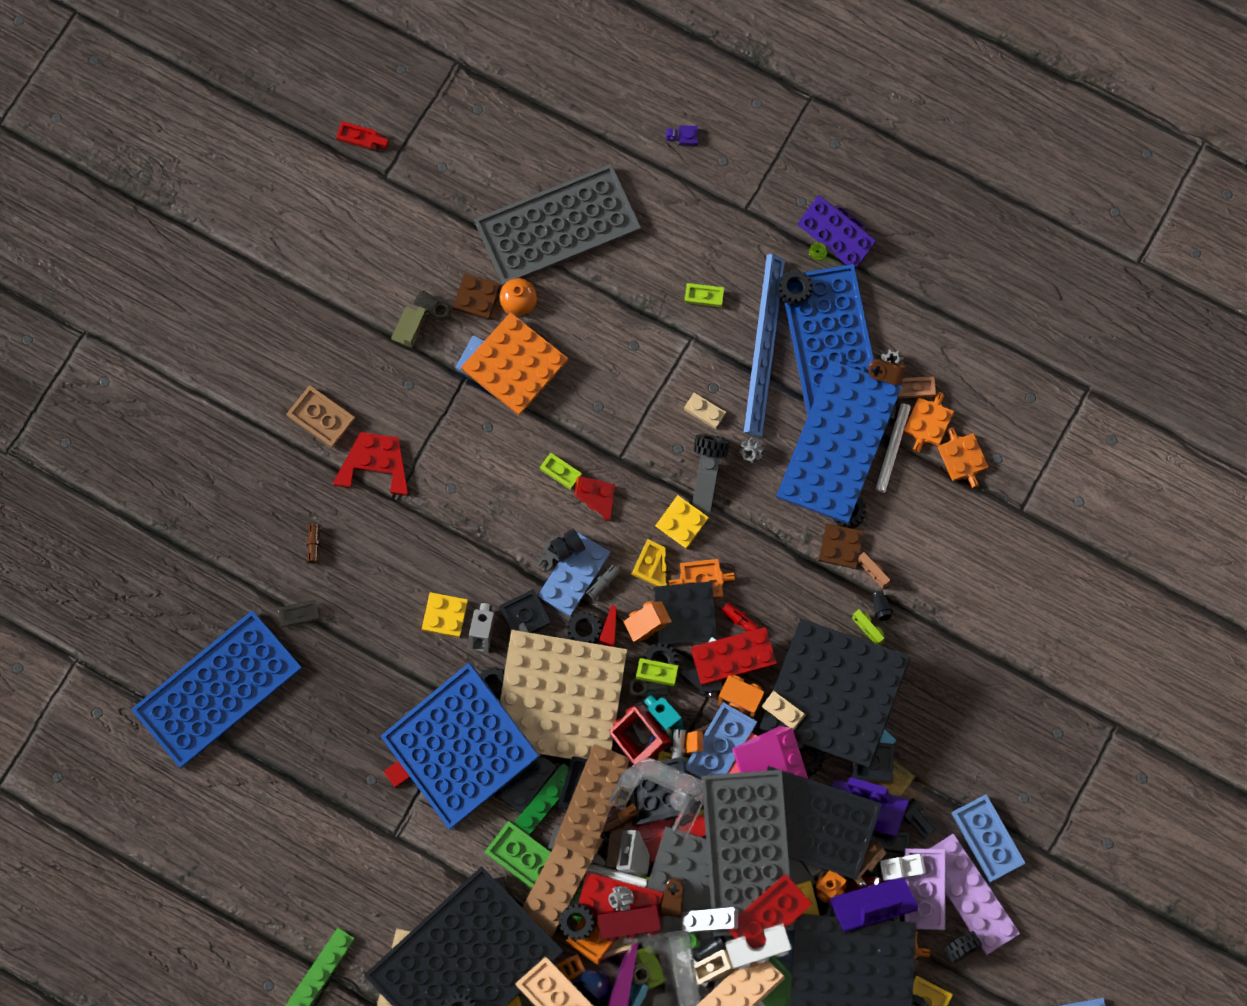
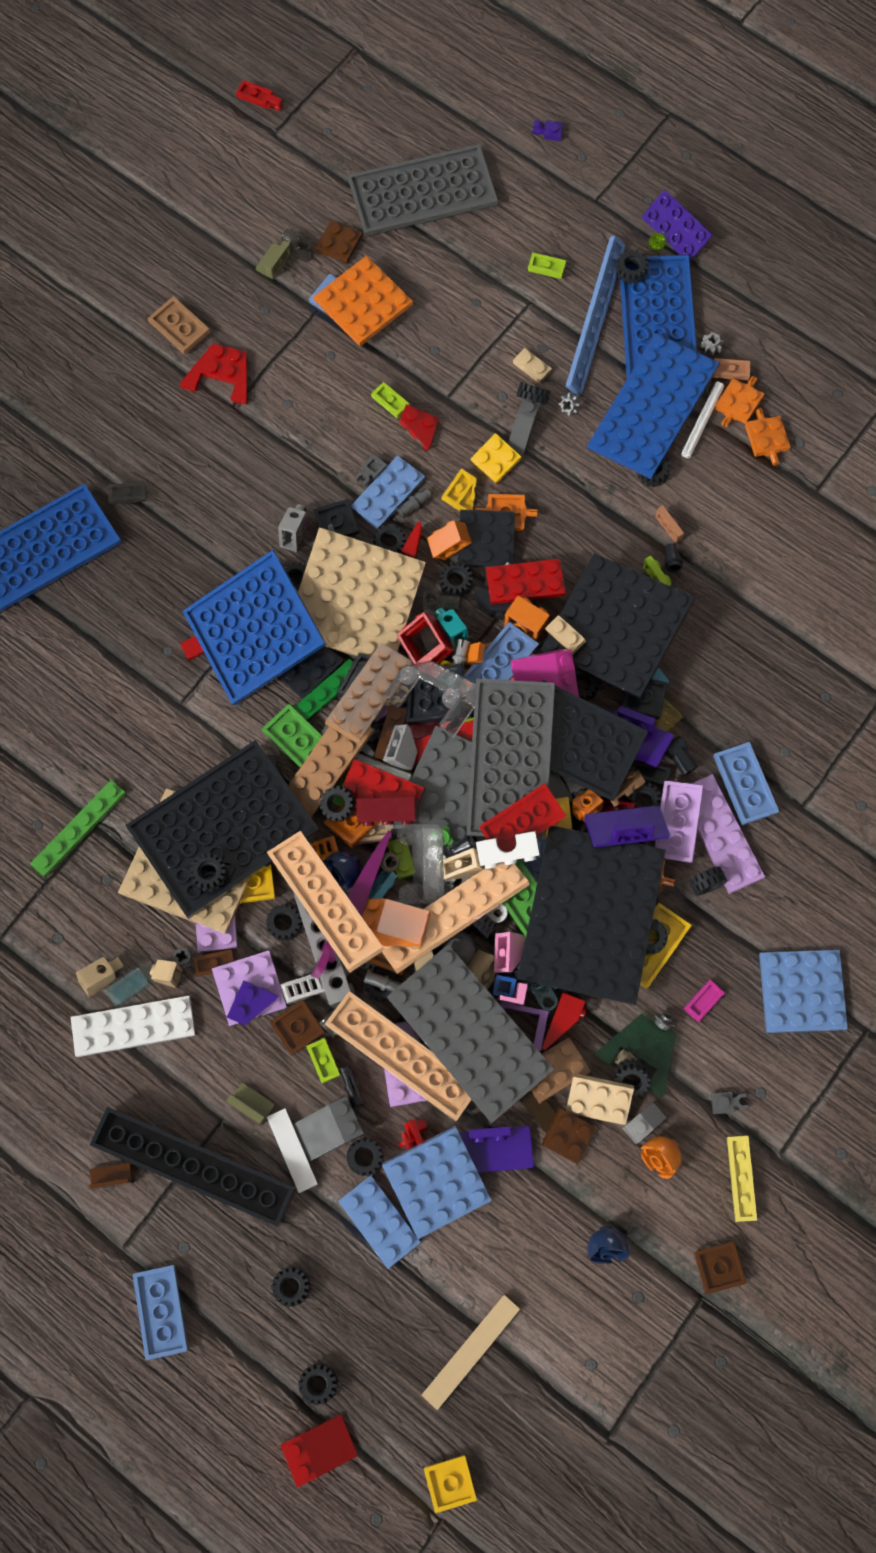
camera: 10 degrees right, 0 degrees up
(313, 543) = (152, 433): reddish brown pin -> none
(444, 615) = (262, 512): yellow plate -> none
(518, 297) = (377, 245): orange cylinder -> none
(568, 545) = (386, 462): black wheel -> none
(620, 817) = (393, 712): reddish brown axle -> none
(621, 898) = (382, 786): light grey gear -> none
(657, 672) = (450, 586): lime plate -> none
(672, 901) = (432, 798): reddish brown piece -> none
(709, 920) = (464, 818): plate -> none
(739, 617) = (535, 549): red pin -> none
(841, 546) = (641, 500): reddish brown plate -> none
(889, 371) = (711, 349): reddish brown piece -> none
(902, 867) = (659, 797): white slope -> none

